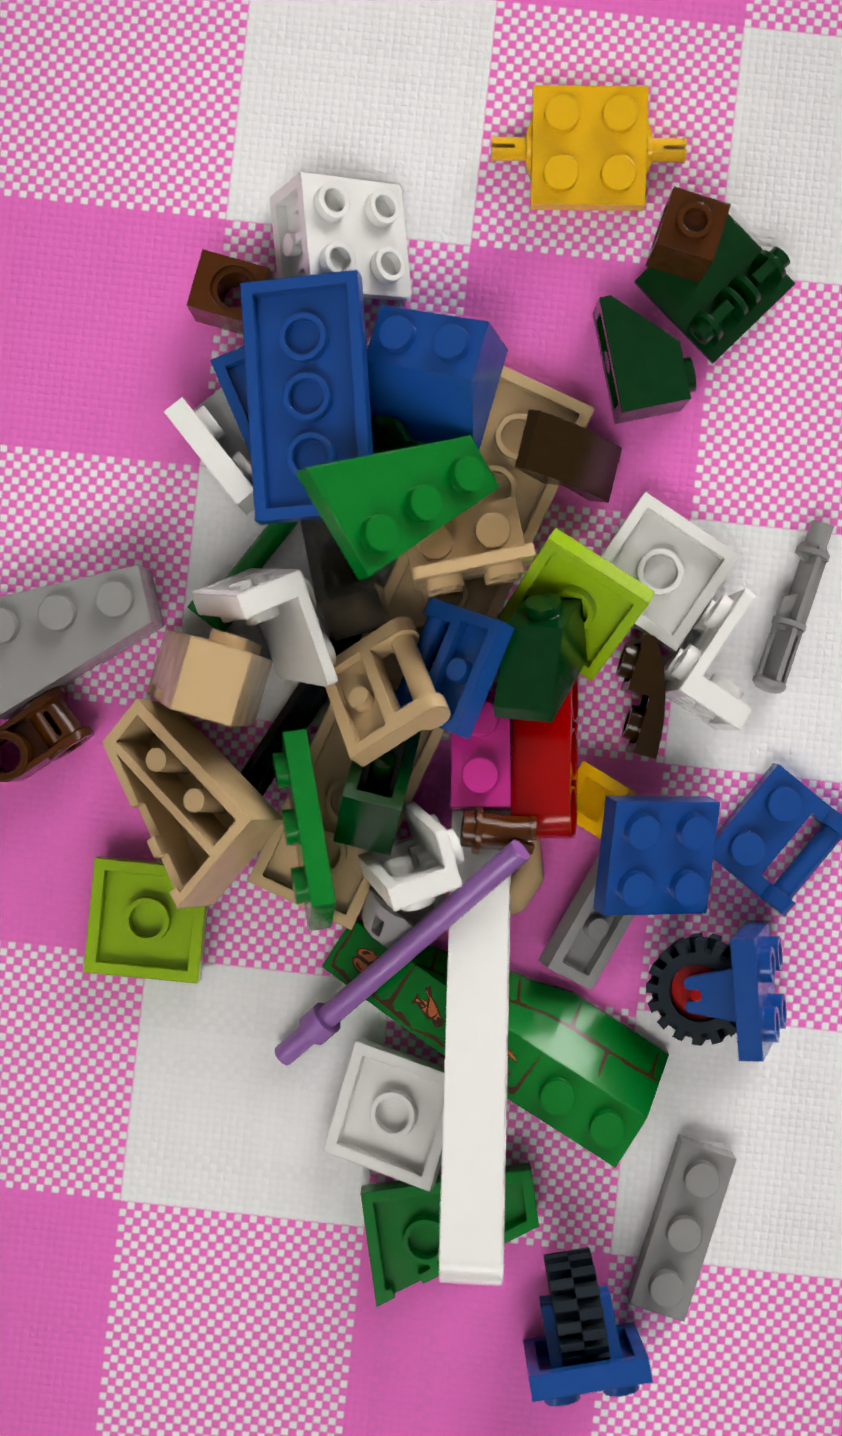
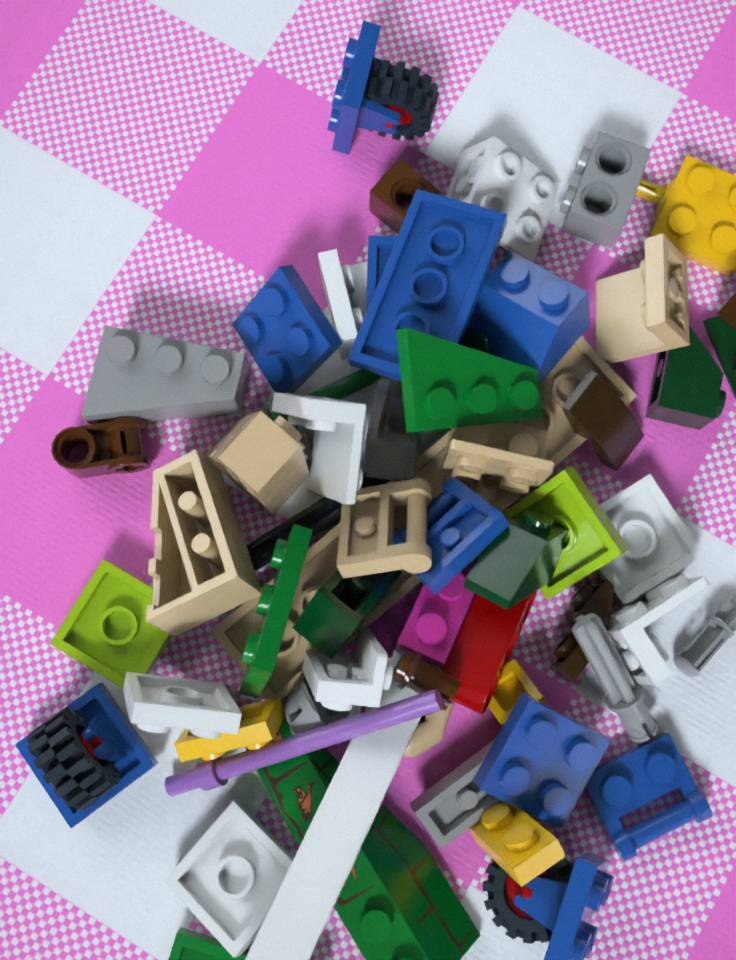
camera: 25 degrees right, 10 degrees down
(141, 179) = (379, 95): none -> plate
(171, 516) = (286, 331): none -> blue plate
(180, 1064) = (86, 754): none -> plate
(254, 972) = (182, 703): none -> white plate
(318, 972) = (256, 729): none -> yellow plate
(463, 173) = (607, 191): none -> light grey brick
(559, 300) = (644, 307): none -> tan bracket
(664, 950) = (516, 842): none -> yellow plate
(712, 746) = (622, 693): none -> light grey axle

